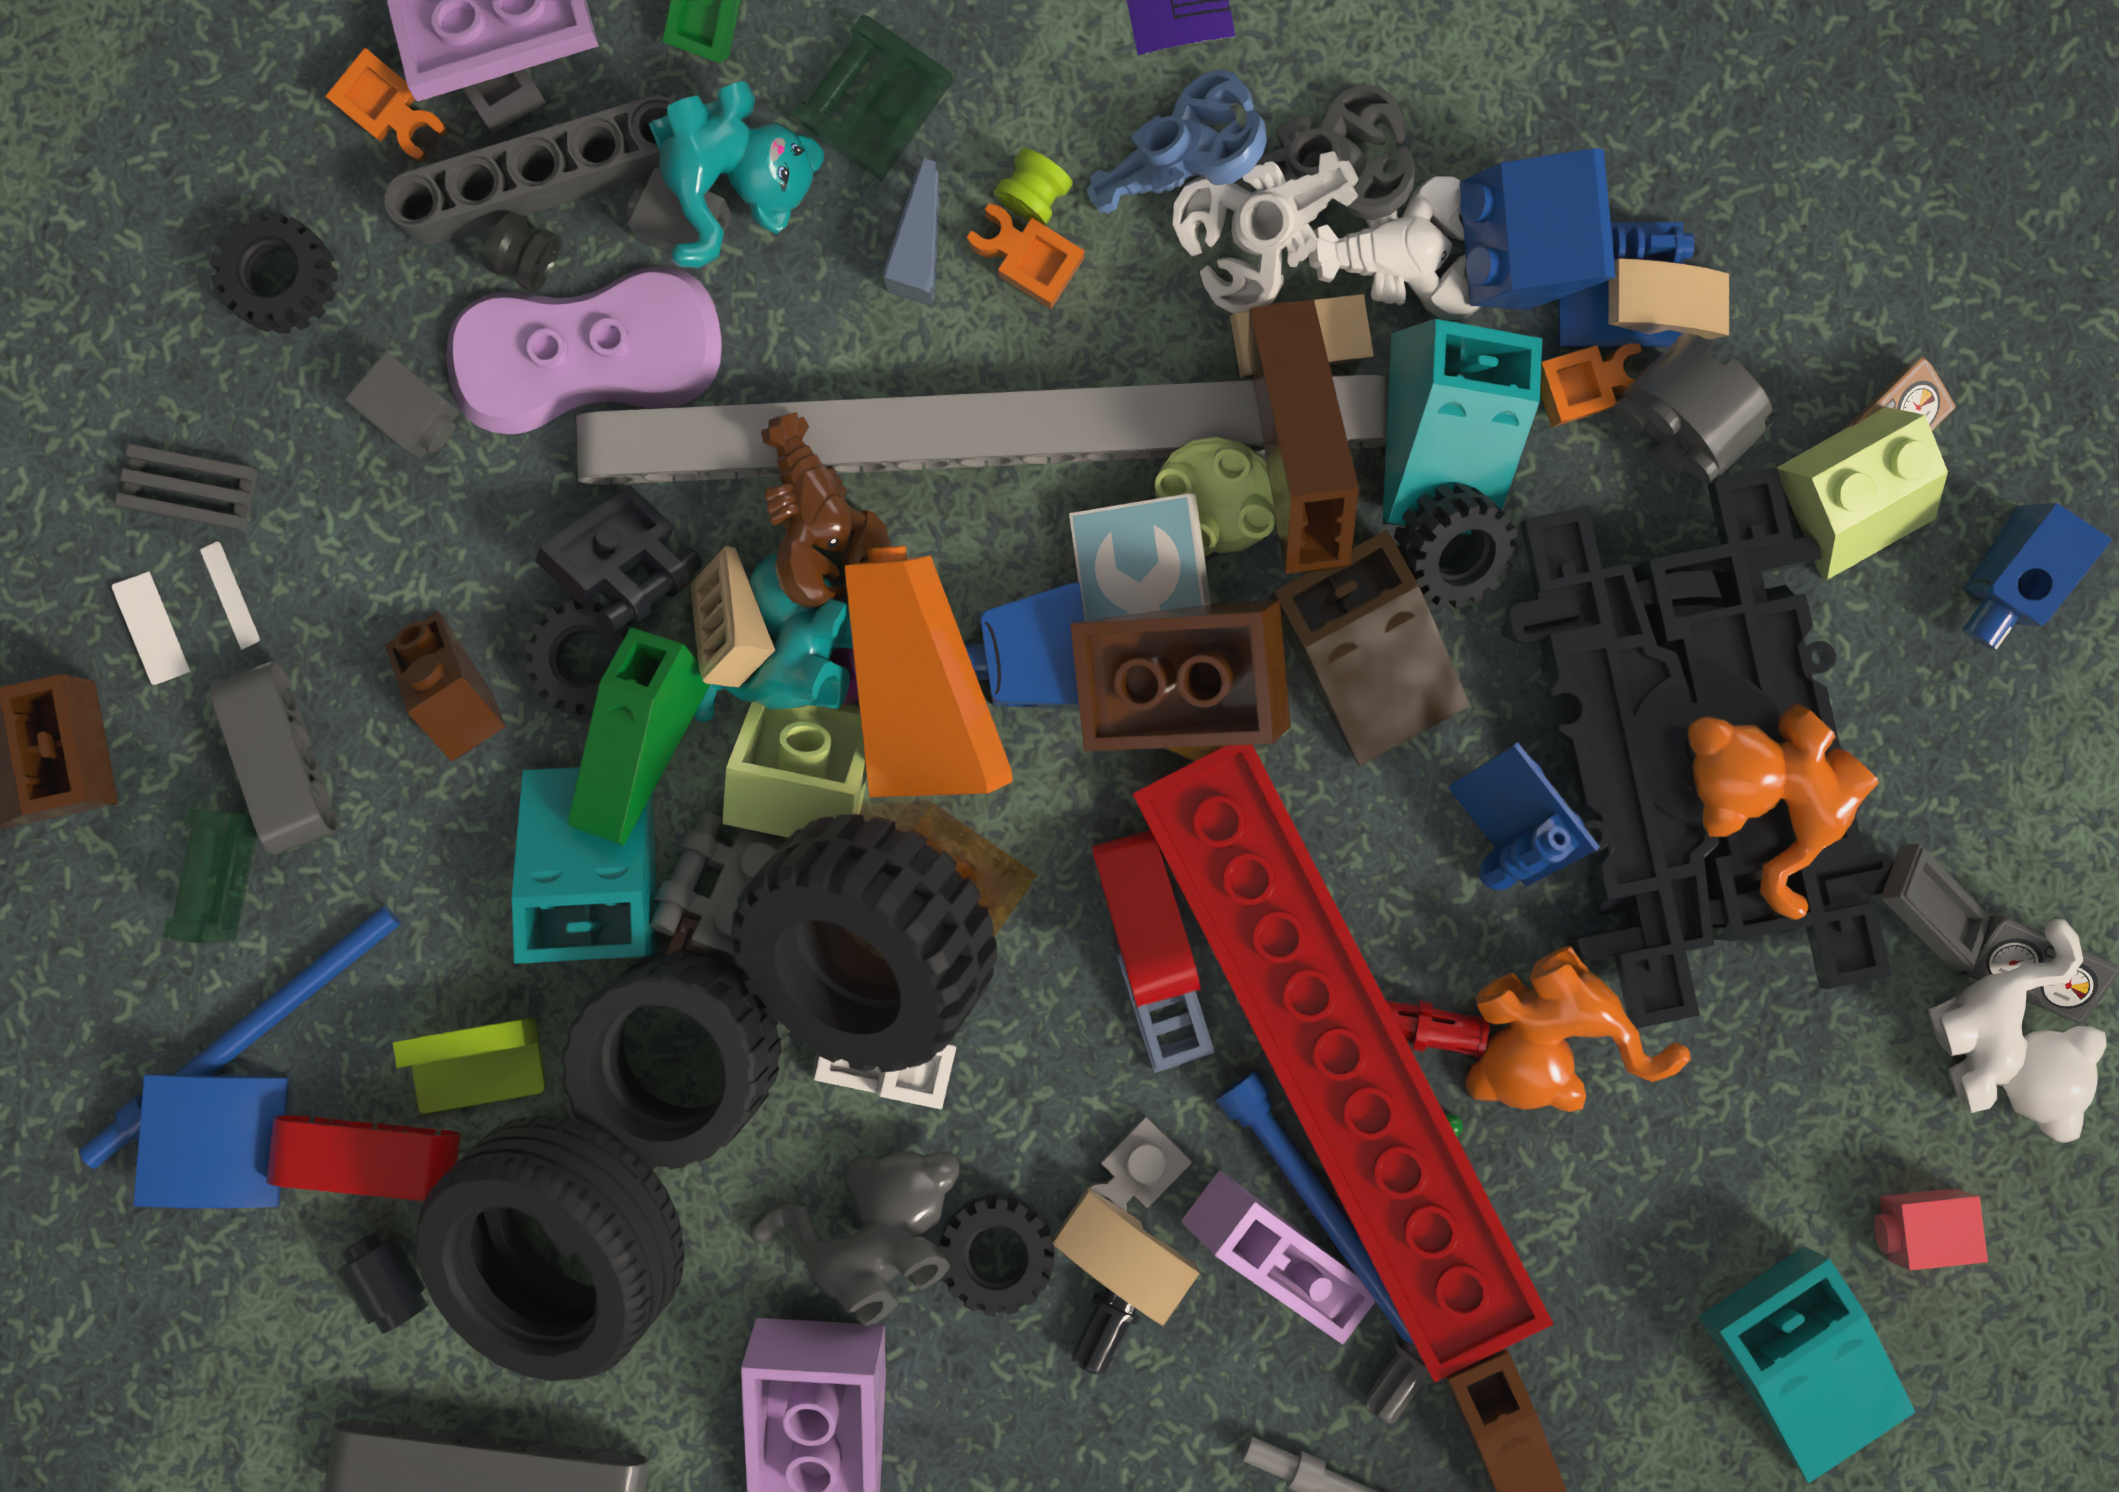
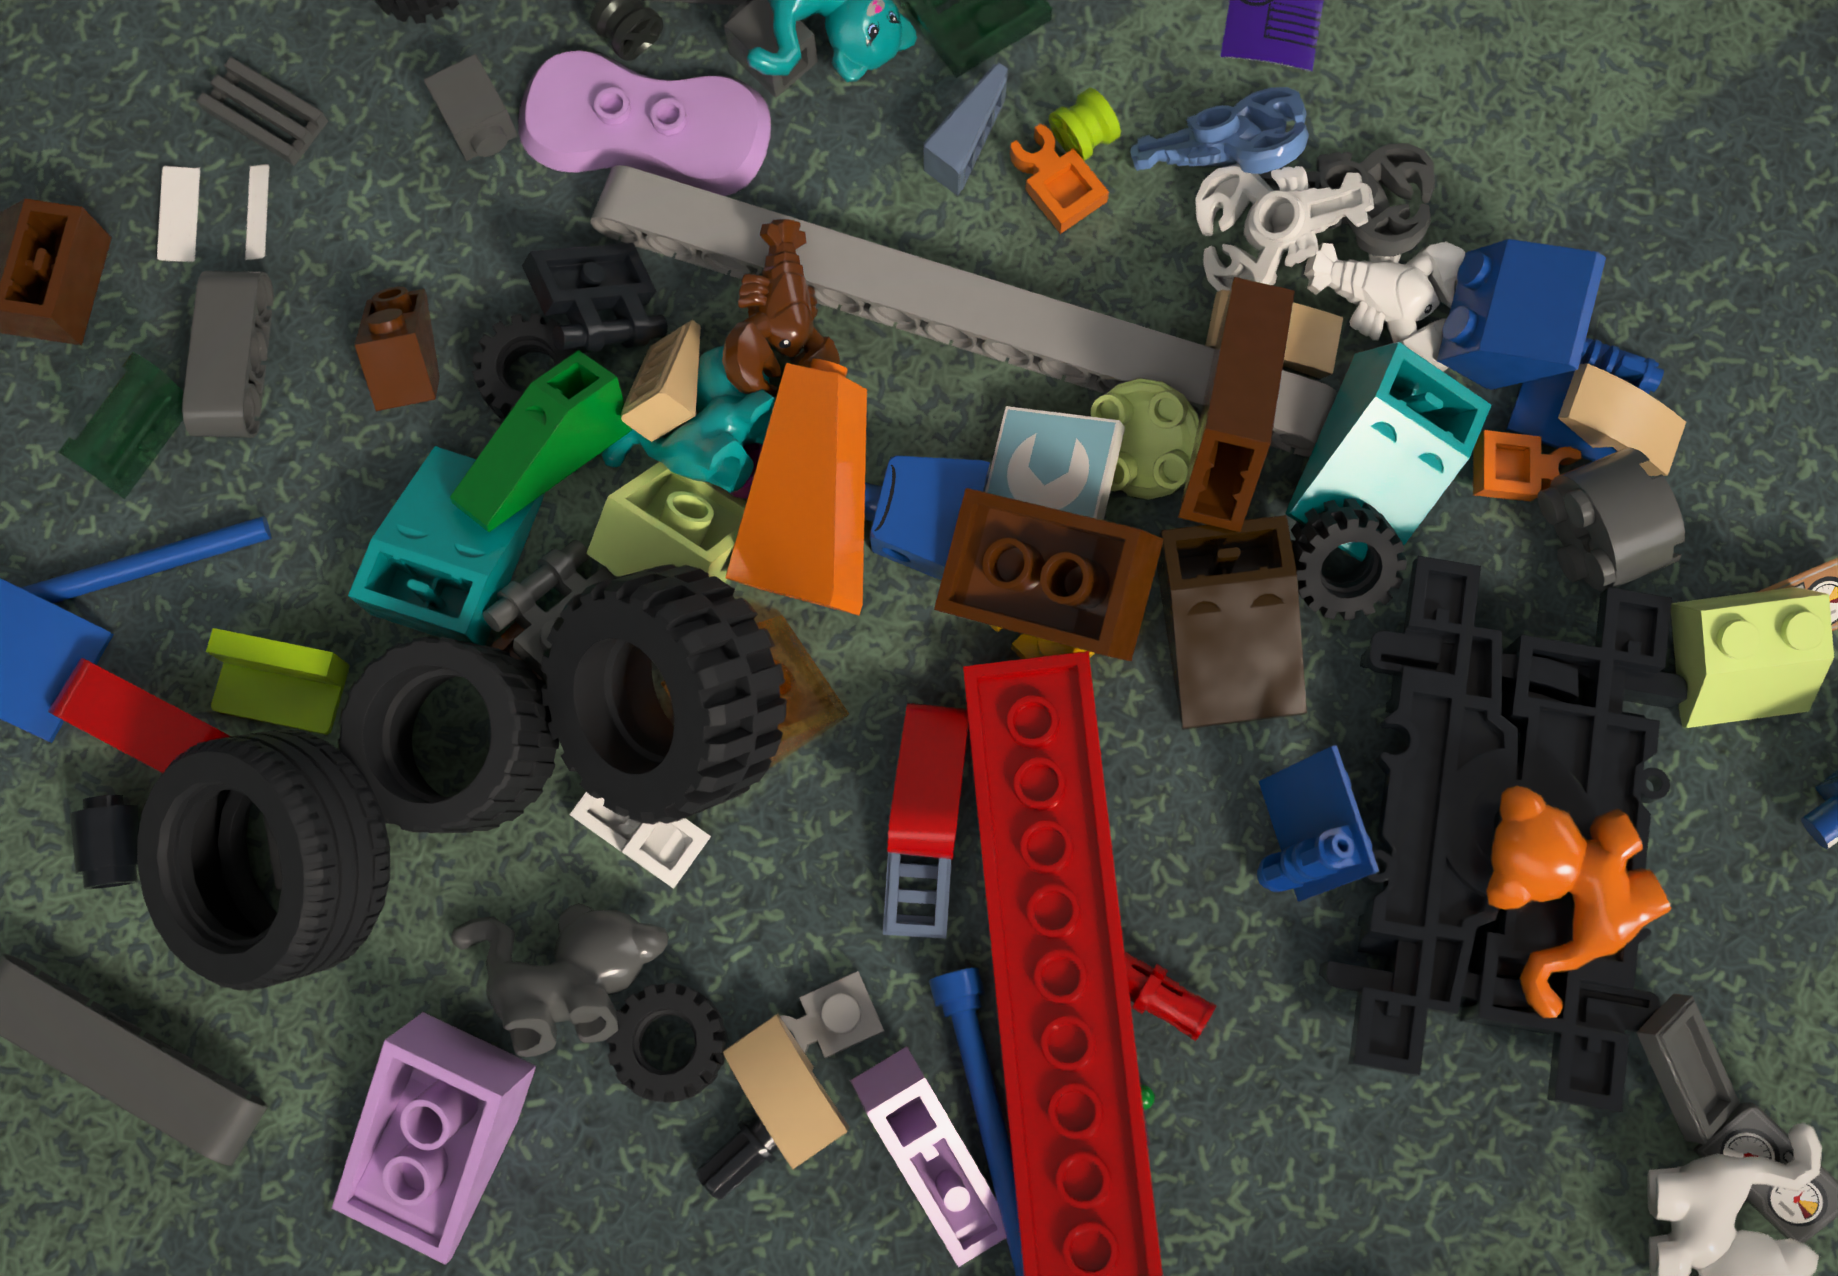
camera: 25 degrees right, 10 degrees down
(1530, 1060) = (1240, 1059): orange animal -> none

